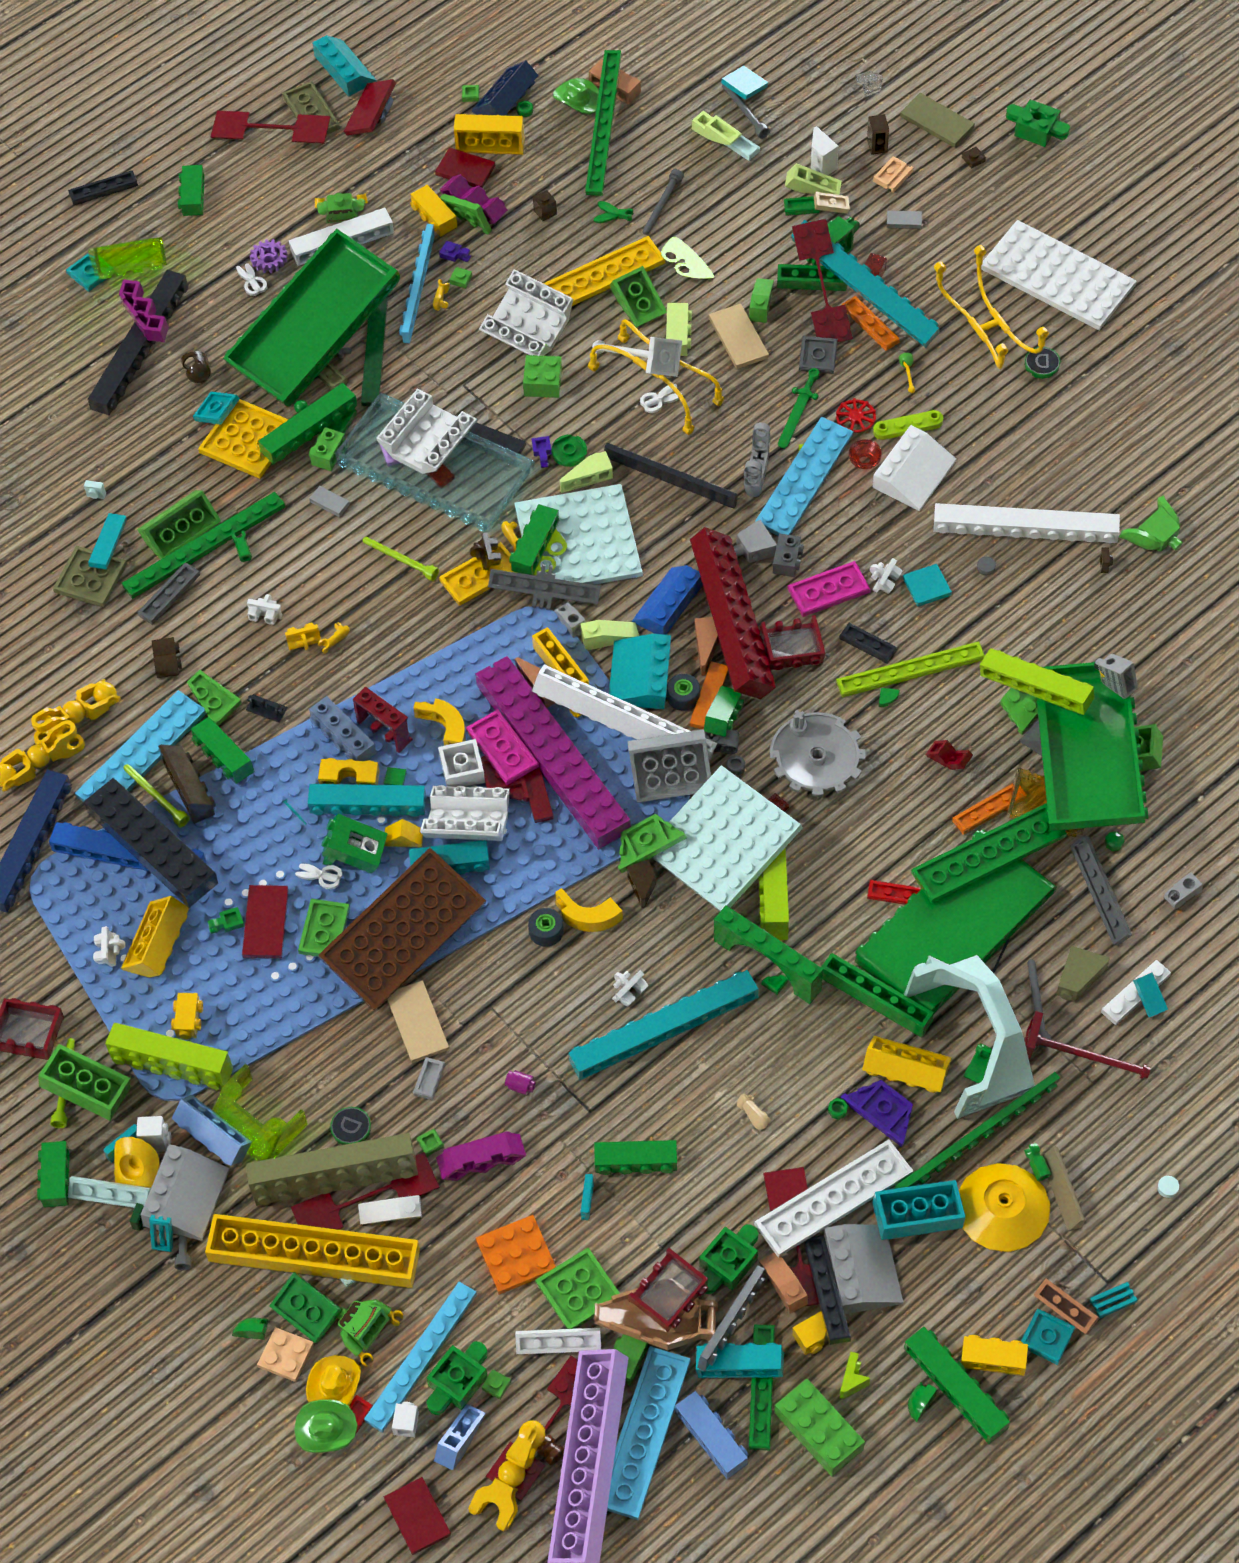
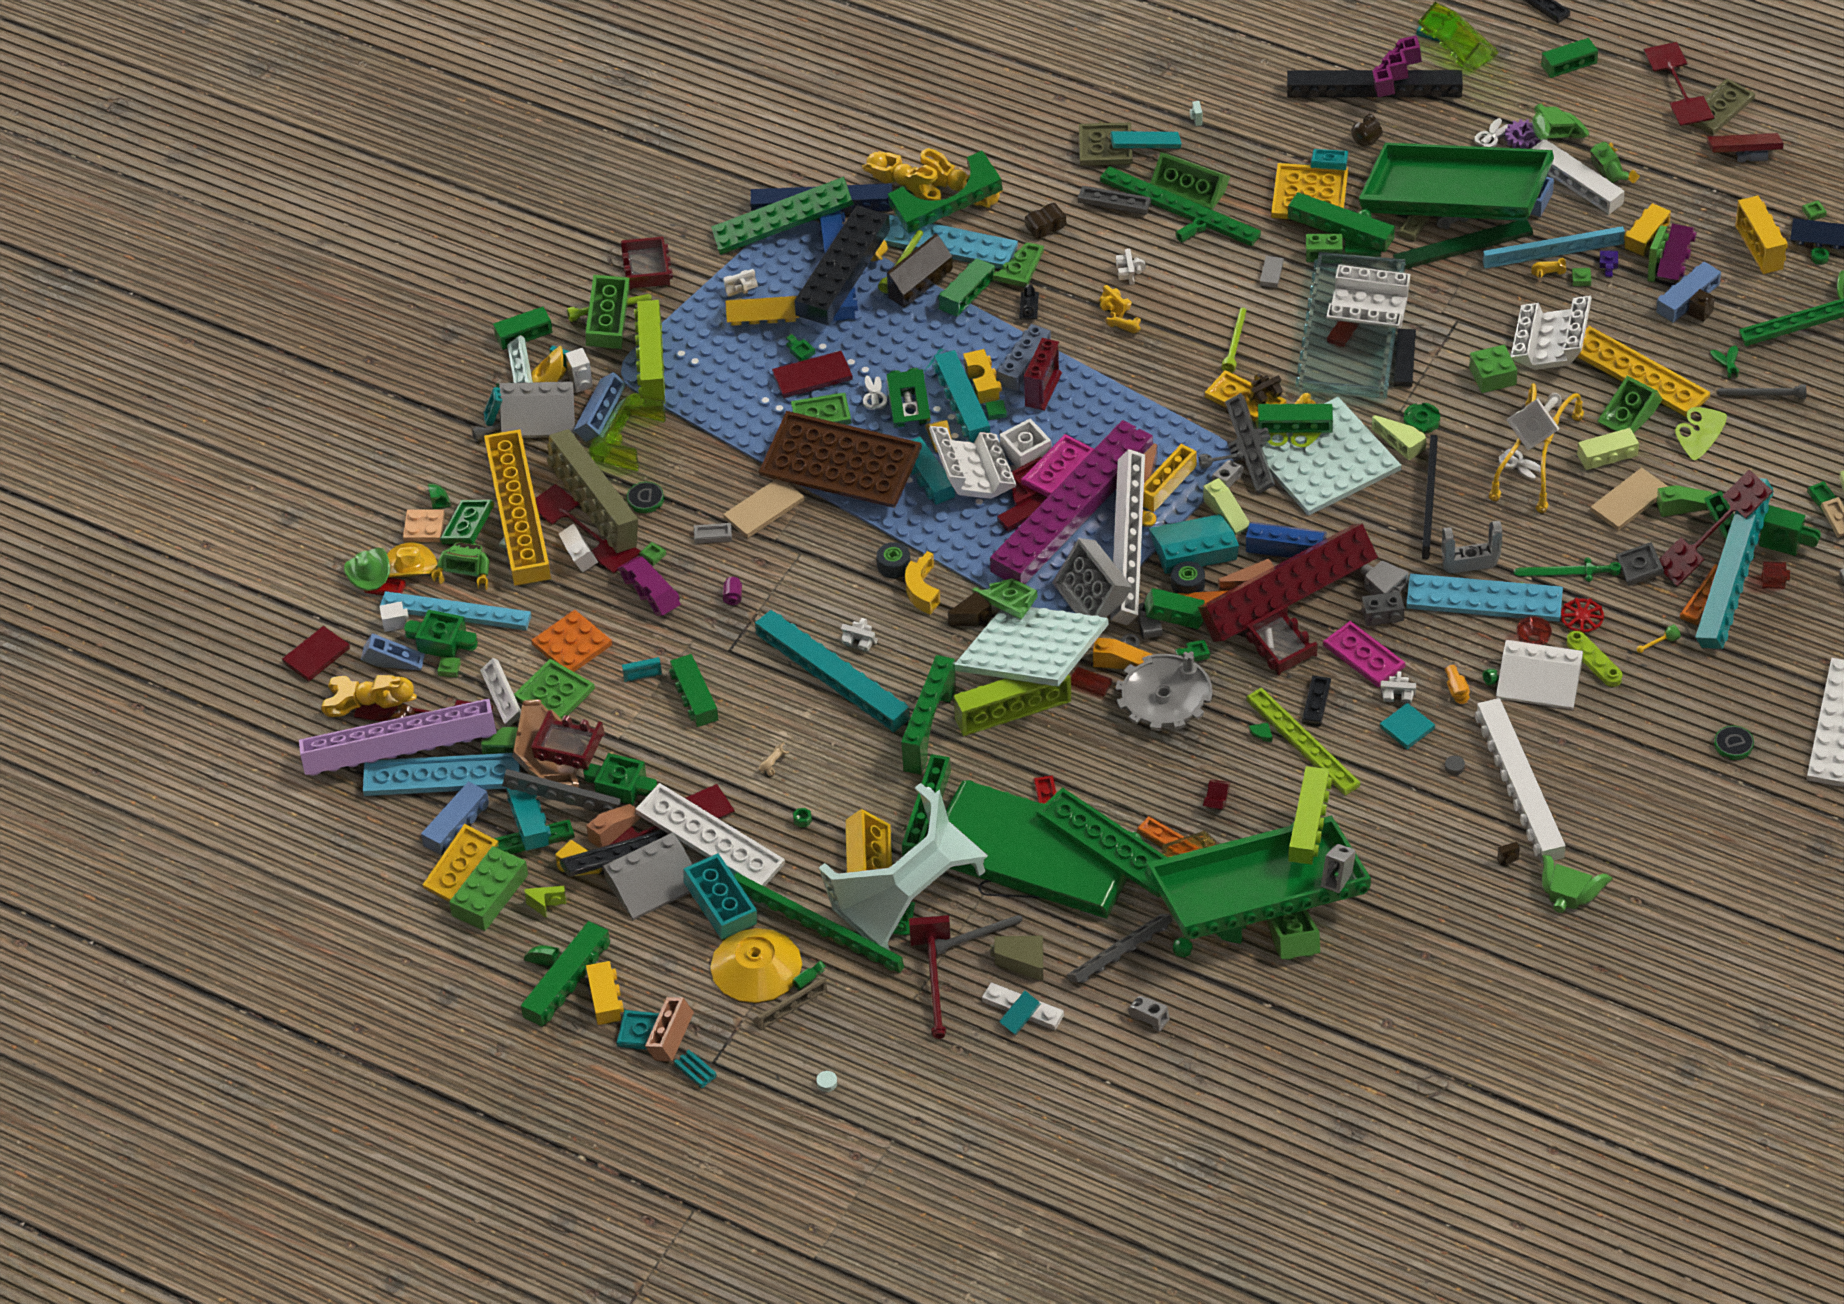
camera: 70 degrees right, 10 degrees down
(38, 880) = (782, 215): none -> green plate
(102, 760) = (918, 212): none -> green arch
(187, 1015) = (695, 352): yellow brick -> none
(273, 227) = (1554, 123): none -> bright green torso
(342, 64) = (1789, 107): teal slope -> none
(444, 714) = (1071, 424): yellow arch -> none
(470, 166) = (1717, 237): dark red tile -> none
(522, 209) = (1676, 300): none -> medium blue brick
(542, 448) = (1409, 395): dark purple plate -> none
(551, 626) = (1206, 460): none -> dark grey hinge
(756, 770) = (1116, 654): none -> light orange slope
(772, 715) = (1199, 649): none -> green plate
(779, 1446) = (458, 862): none -> yellow plate
(882, 1108) = (816, 846): dark purple wing -> none
(898, 531) = (1457, 685): none -> light orange arm
(900, 505) = (1490, 676): none -> green hinge
(1001, 349) = (1742, 709): yellow bar -> none

